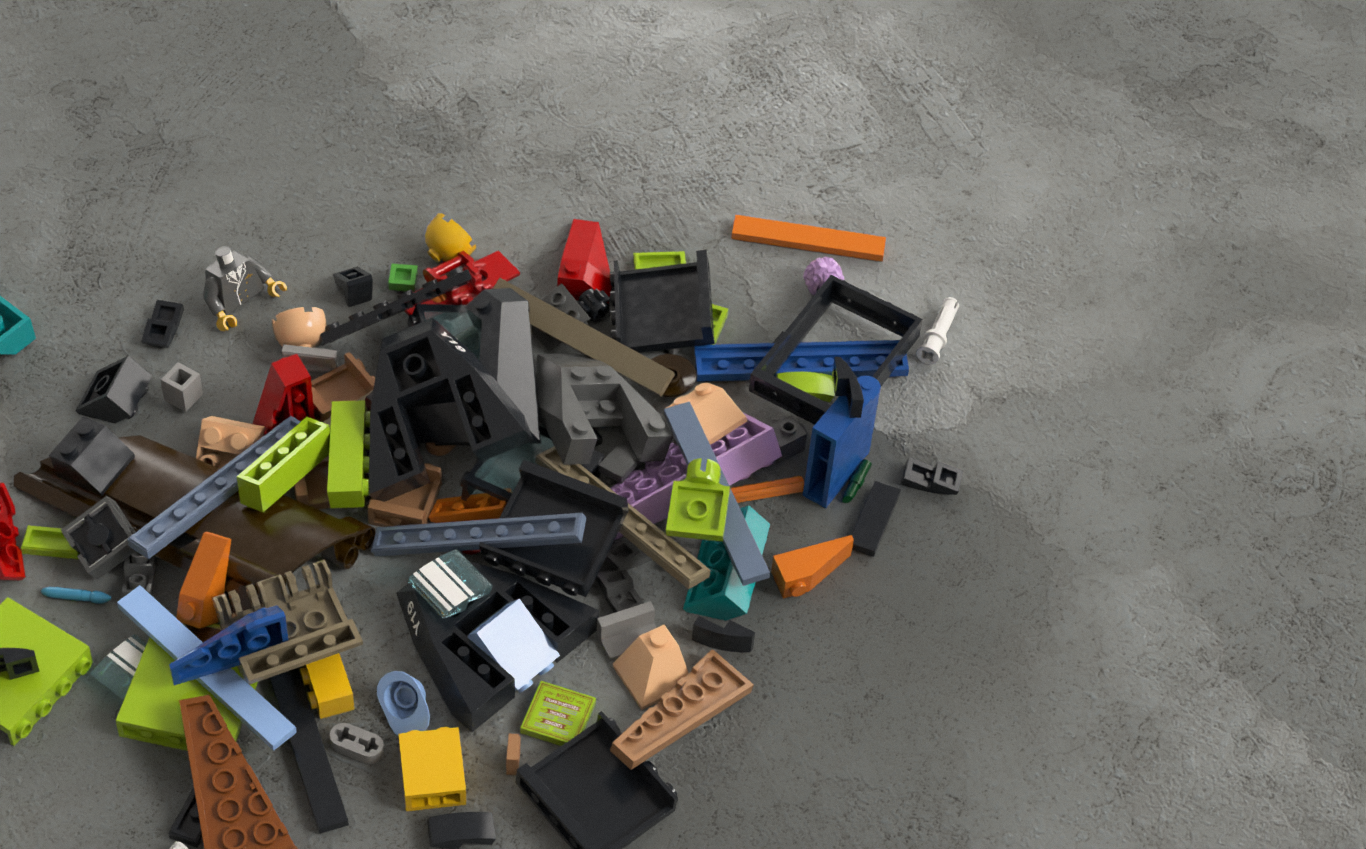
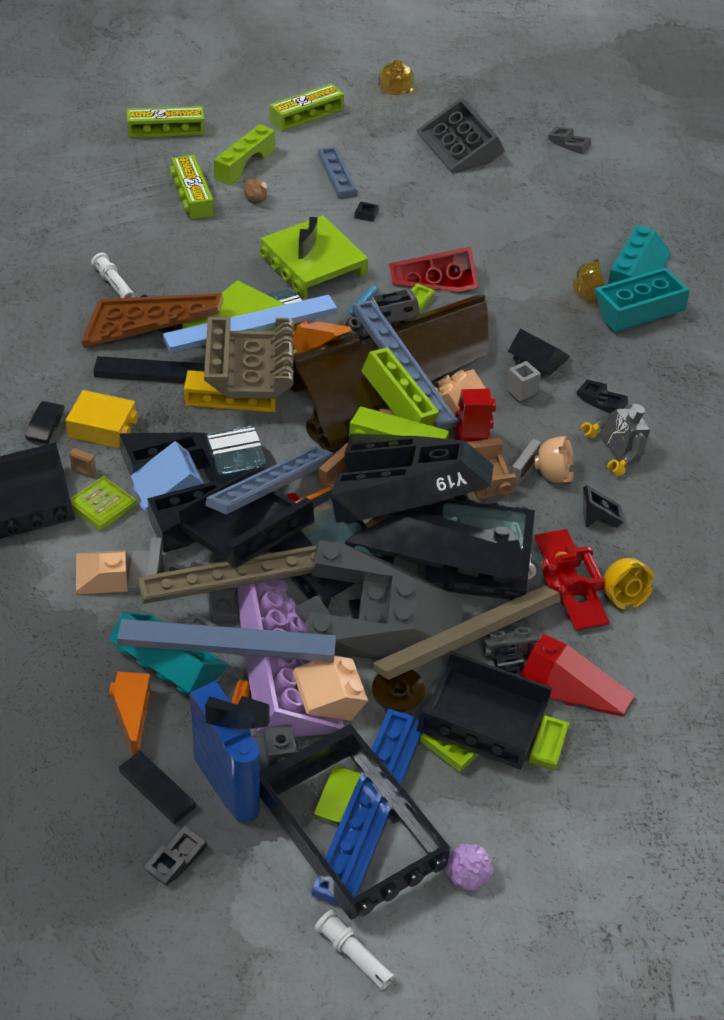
camera: 115 degrees right, 5 degrees down
(90, 456) = (466, 310): black slope -> none
(222, 651) = (246, 327): blue wedge -> none
(356, 744) = (152, 394): light grey beam -> none
(403, 277) = (600, 545): bright green plate -> none
(403, 702) = (169, 422): light blue piece -> none
(407, 300) = (548, 521): black wing -> none
(694, 700) = (50, 574): medium nougat wing -> none
(699, 504) = (210, 609): lime plate -> none
(731, 638) = (96, 623): black slope -> none
(808, 238) = (536, 889): orange tile -> none
(857, 481) = (208, 793): dark green piece -> none

